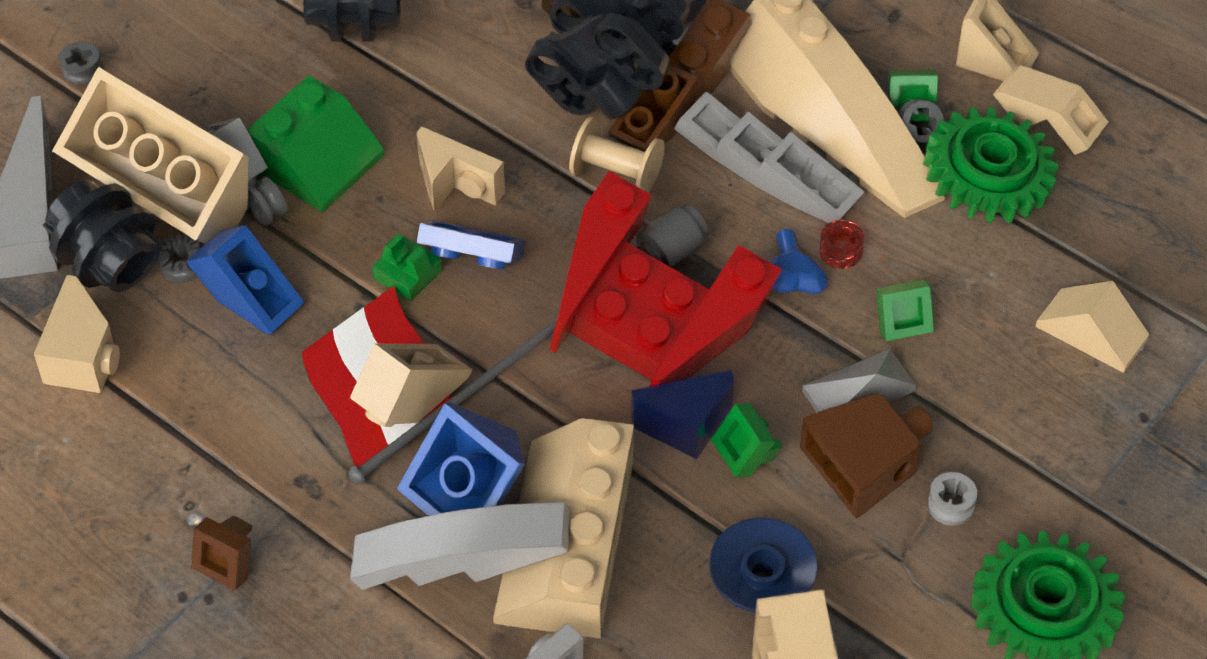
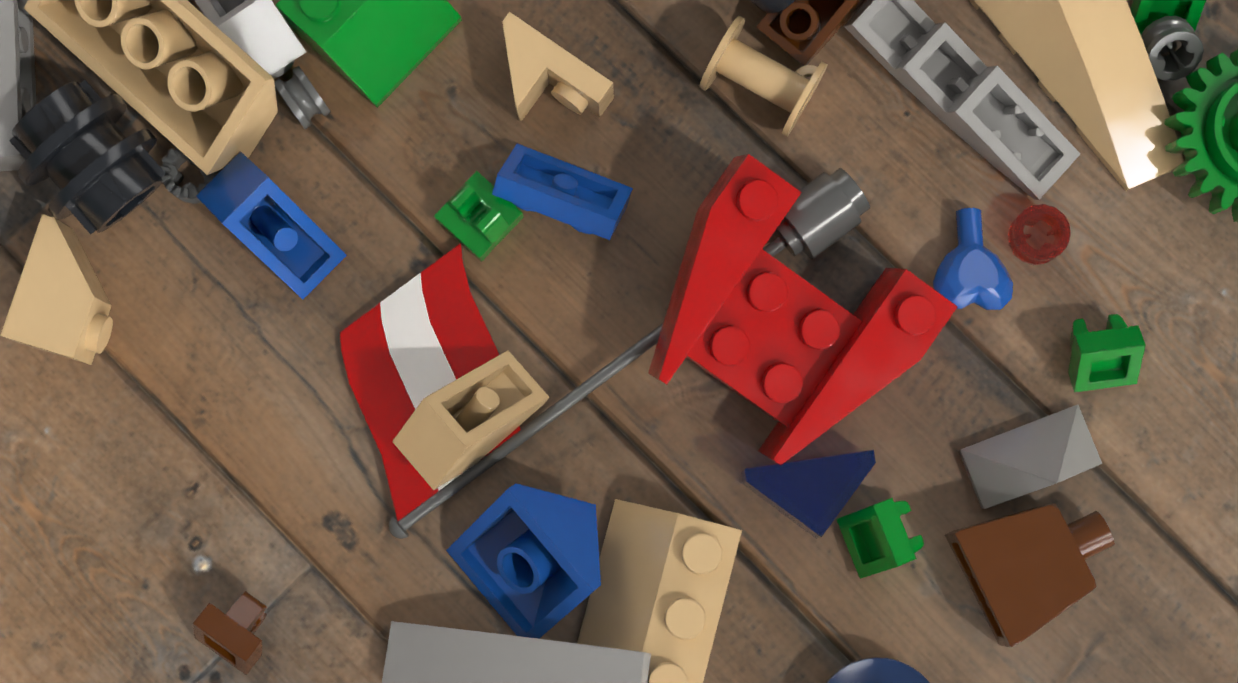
camera: 10 degrees right, 30 degrees up
(947, 512) = (1139, 649): light grey bush -> none

